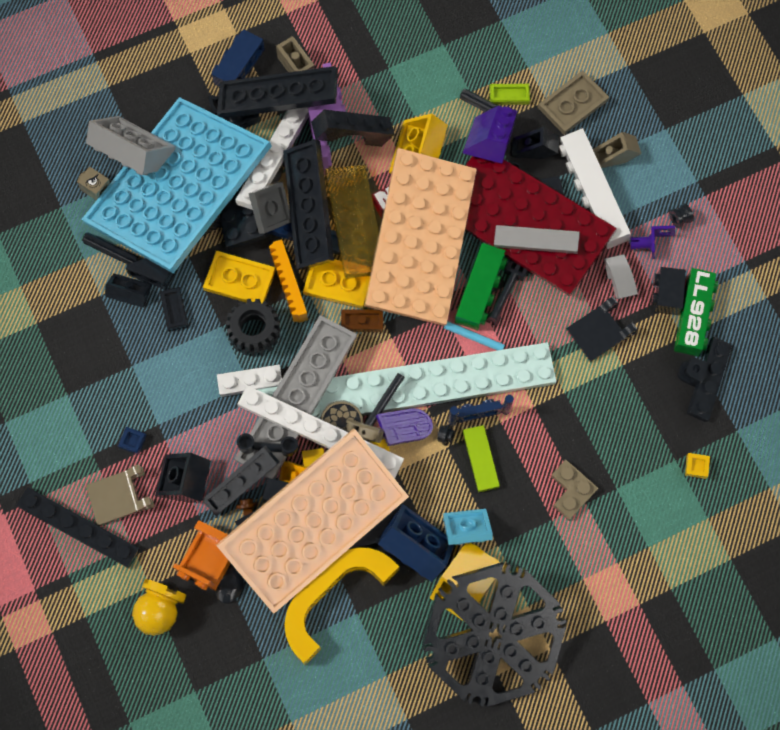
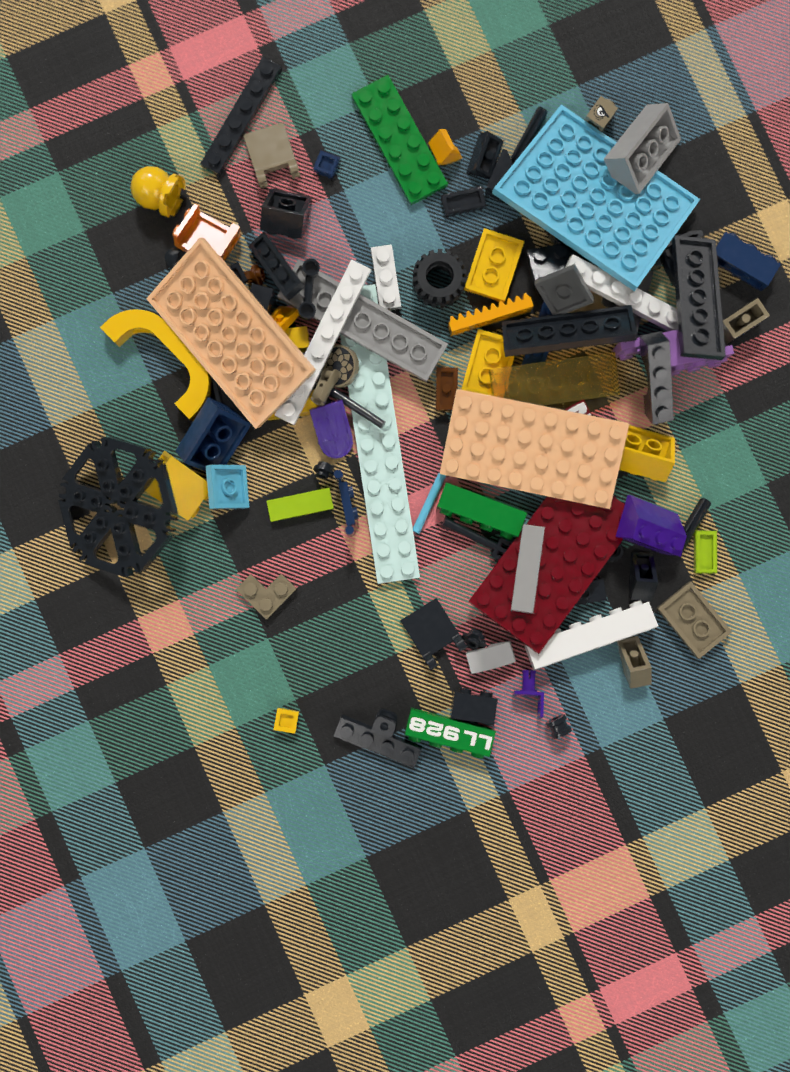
camera: 85 degrees right, 15 degrees up
(108, 370) = (399, 140): none -> green plate
(120, 326) = (443, 148): none -> light orange tile
(604, 290) = (474, 639): none -> black plate

